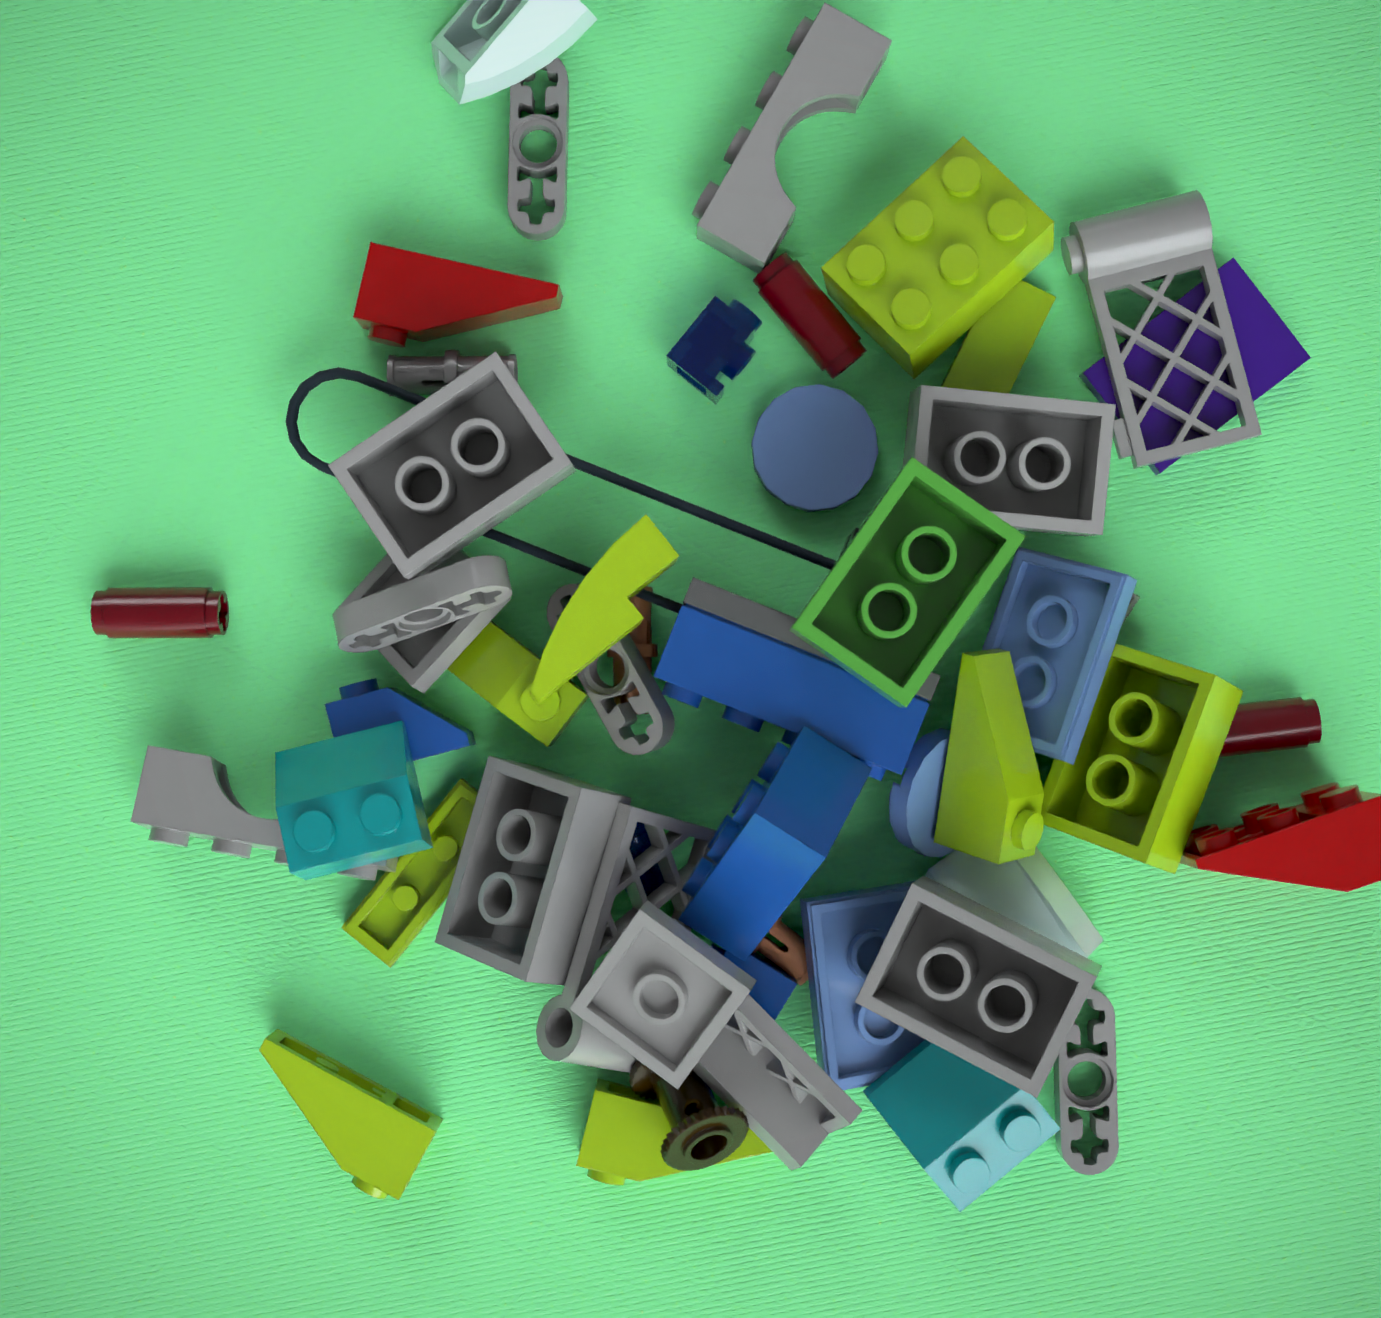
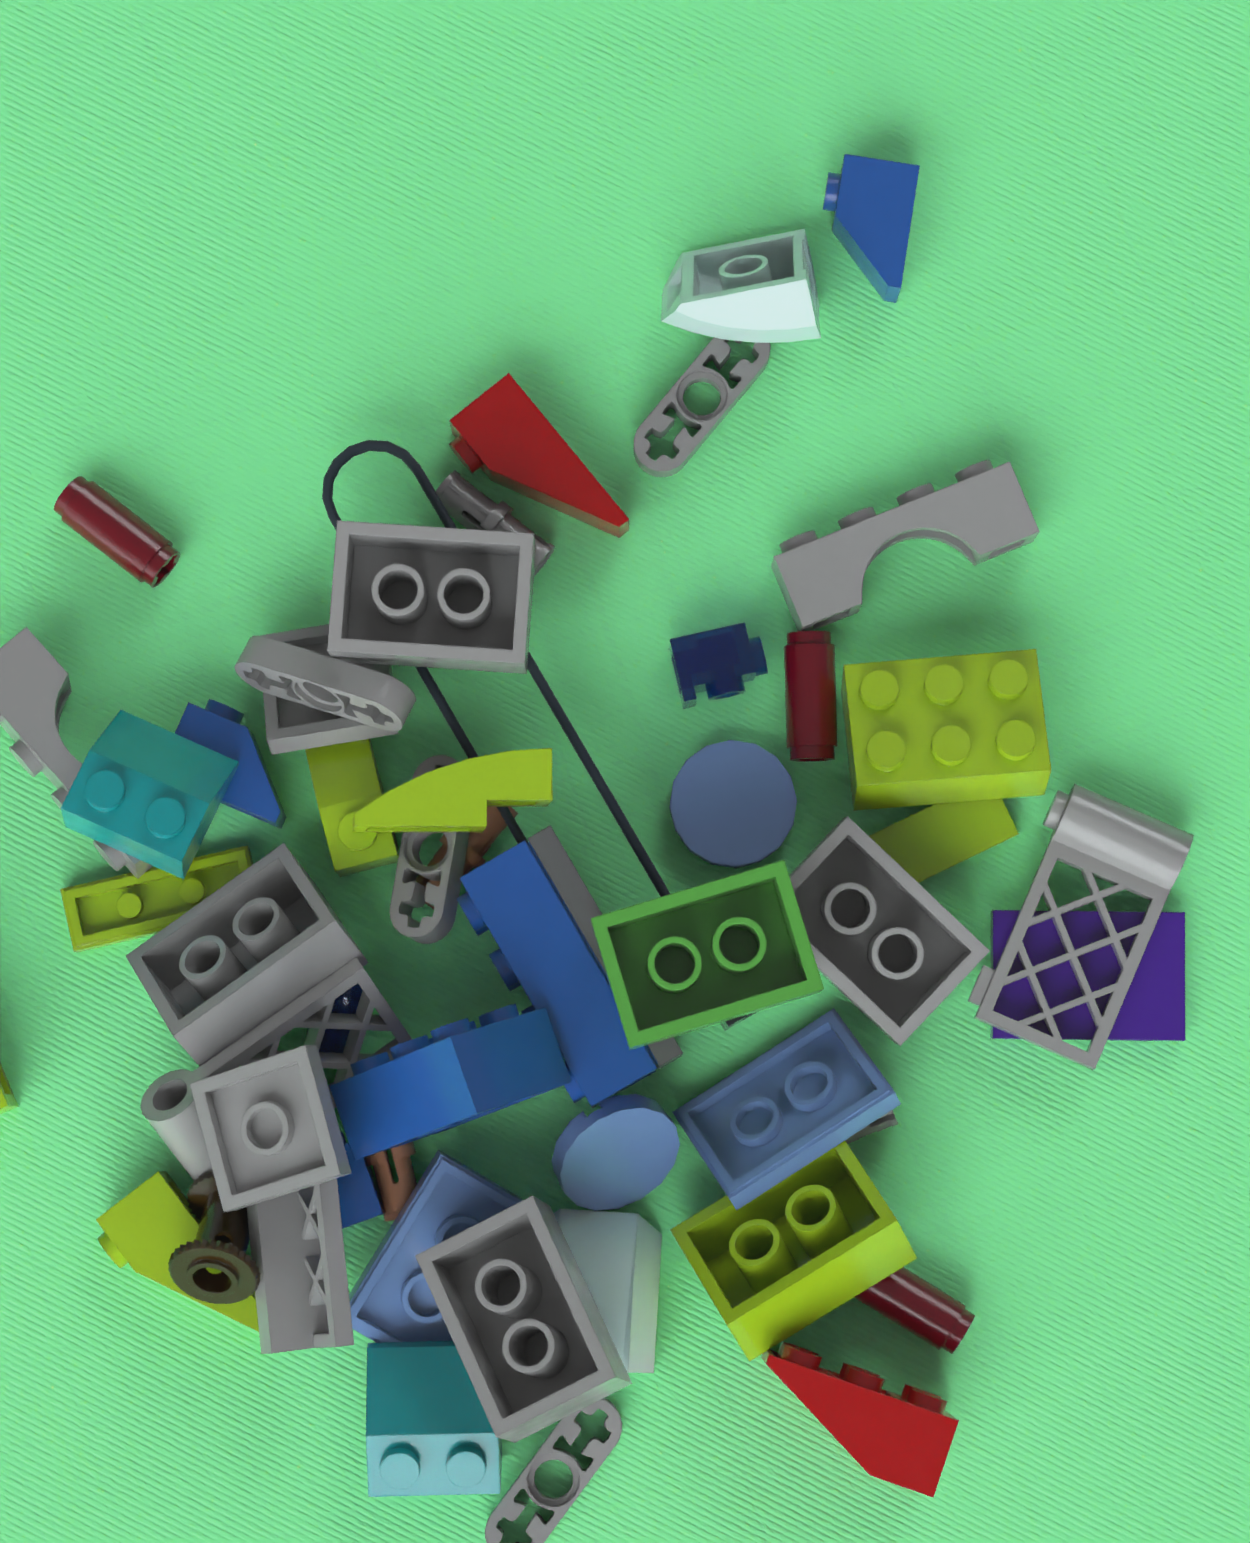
camera: 35 degrees right, 5 degrees down
(991, 771) = (668, 1161): lime slope -> none

